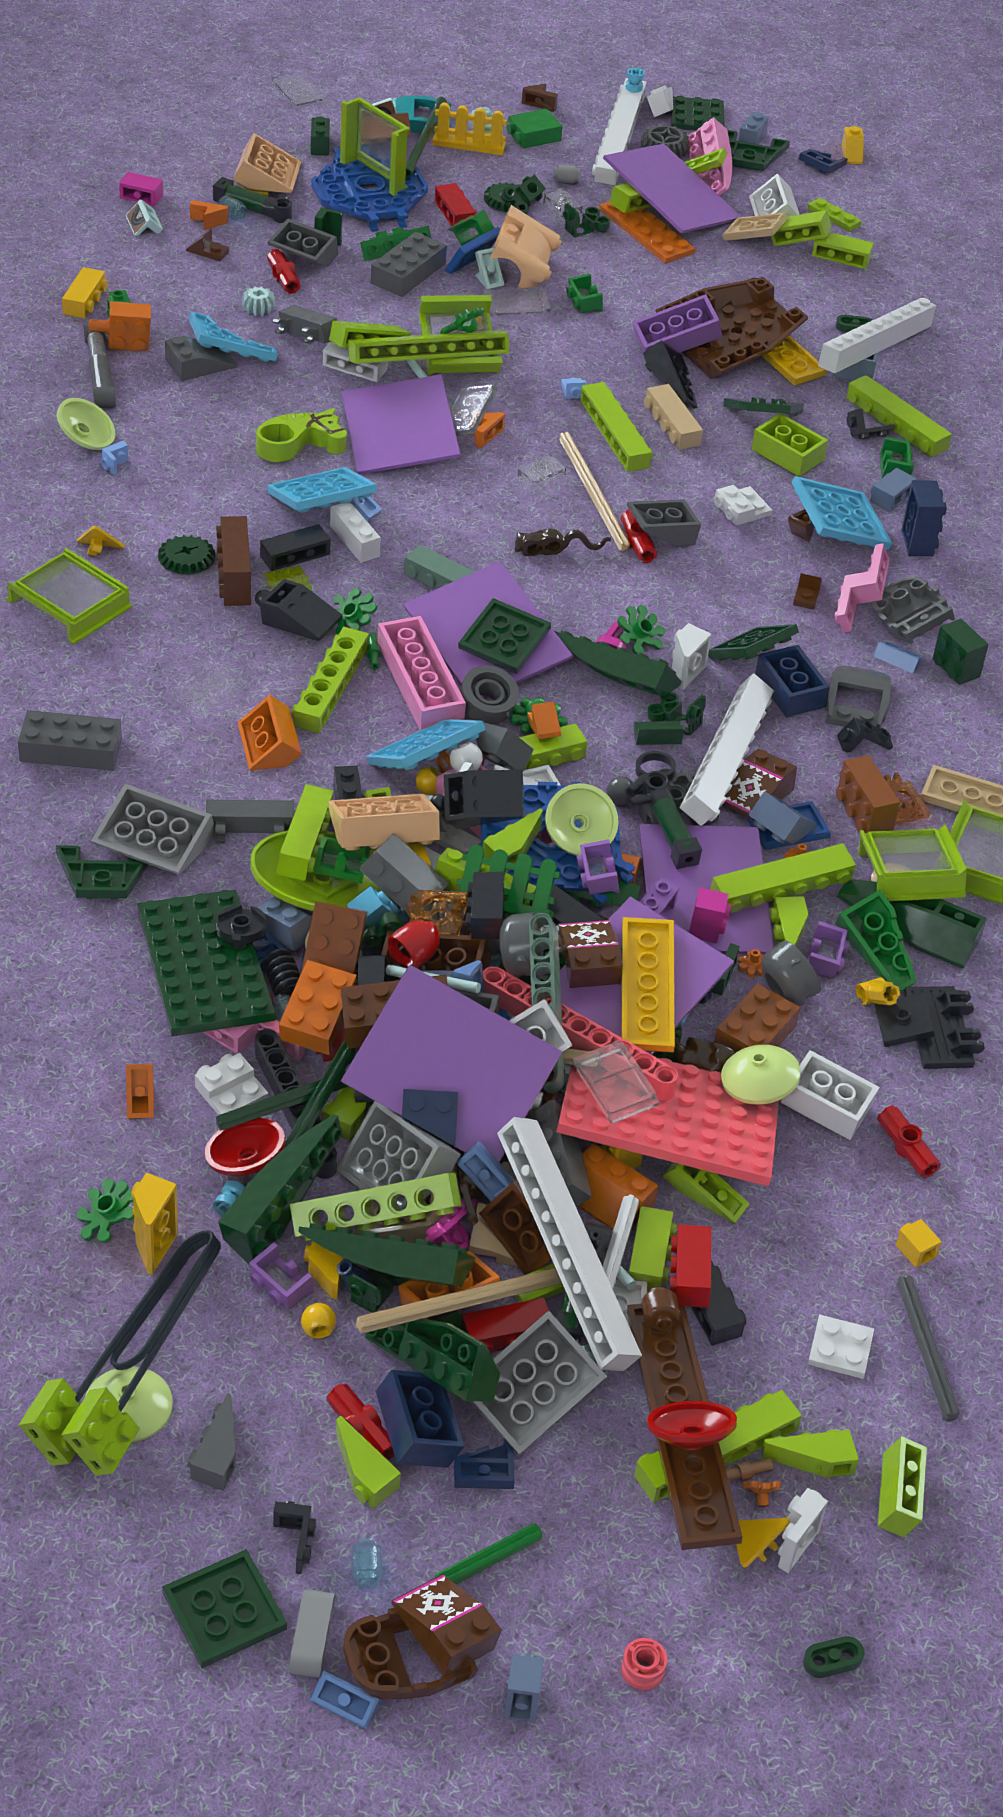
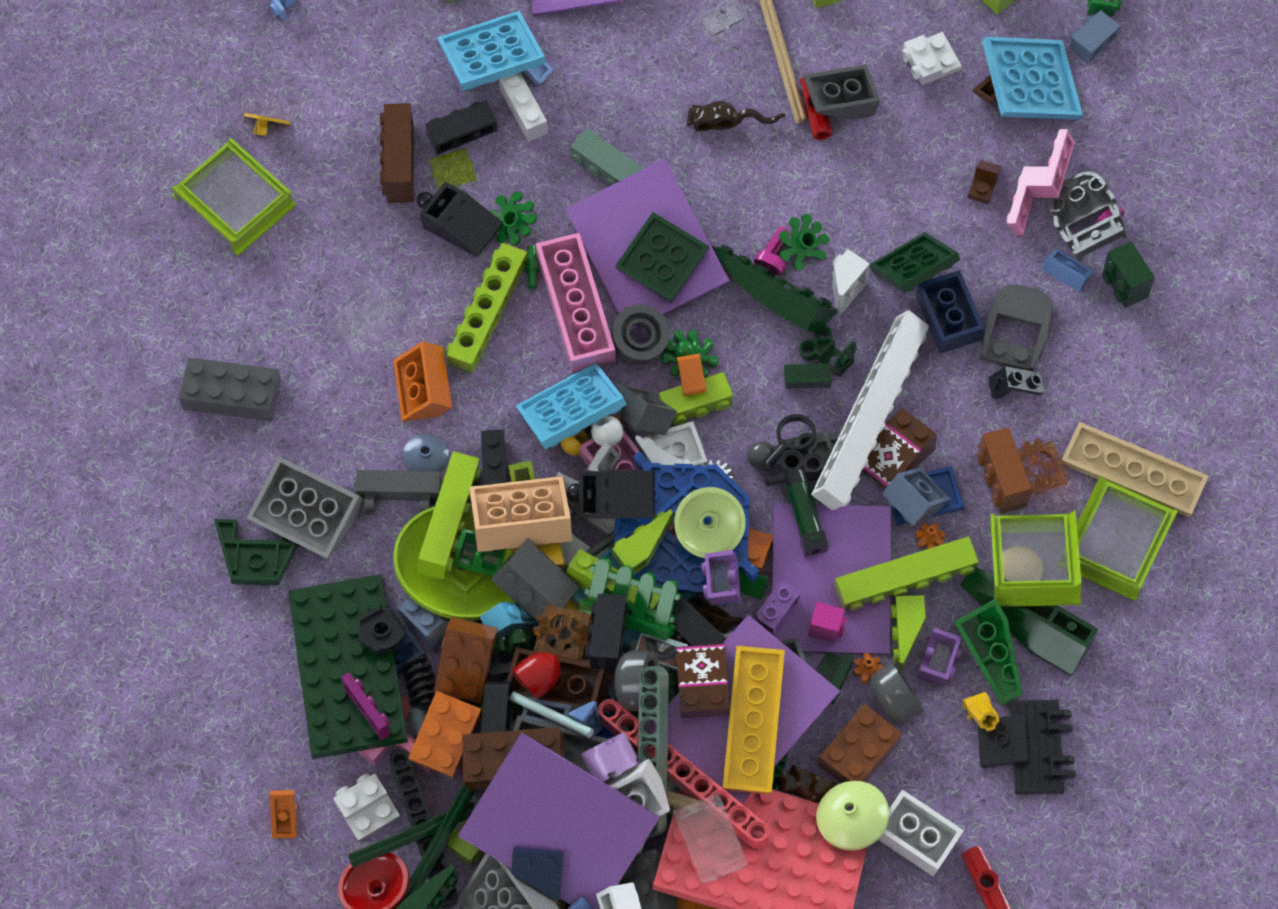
camera: 10 degrees right, 20 degrees up
(197, 558) = (348, 147): dark green gear -> none
(229, 981) = (366, 705): none -> magenta plate
(276, 790) = (432, 461): none -> sand blue dish
(505, 996) = (610, 757): none -> lavender brick
(923, 518) = (1116, 91): dark blue brick -> none

